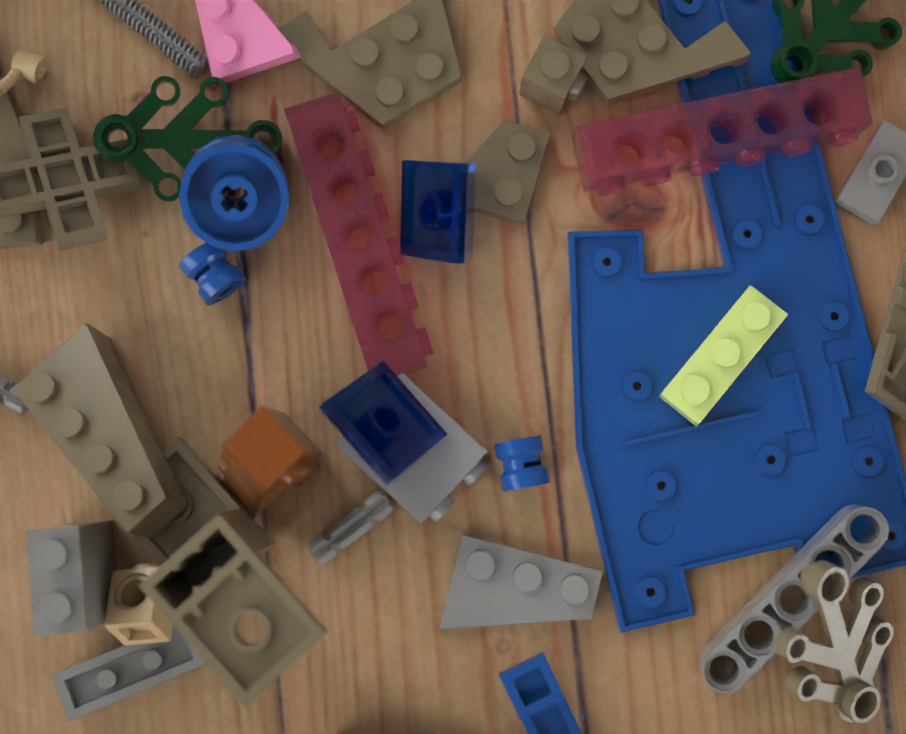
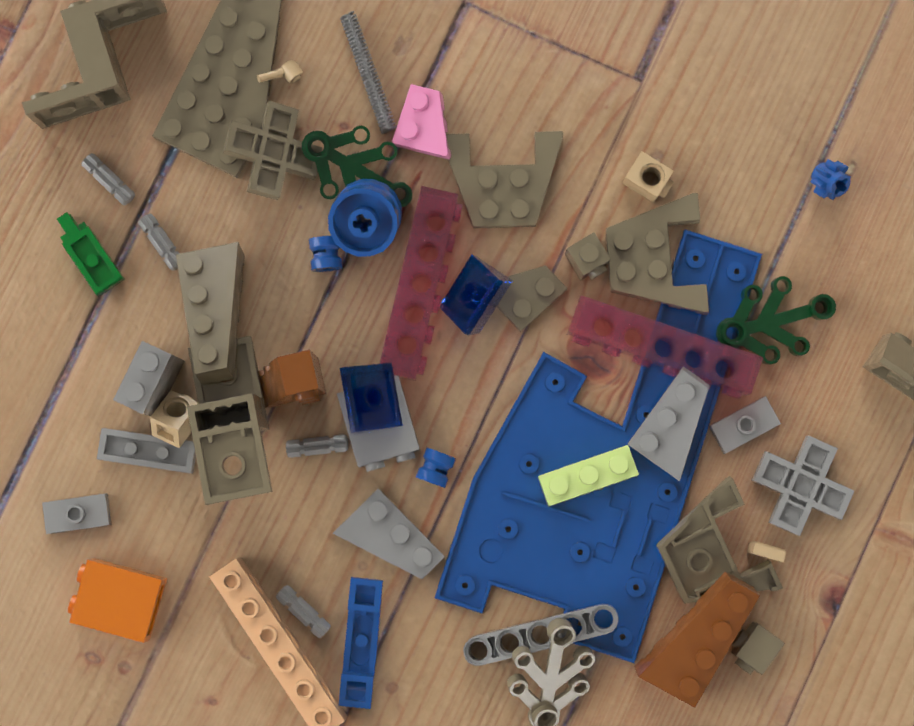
camera: 30 degrees right, 0 degrees up
(793, 222) = (671, 425): none -> light grey wing

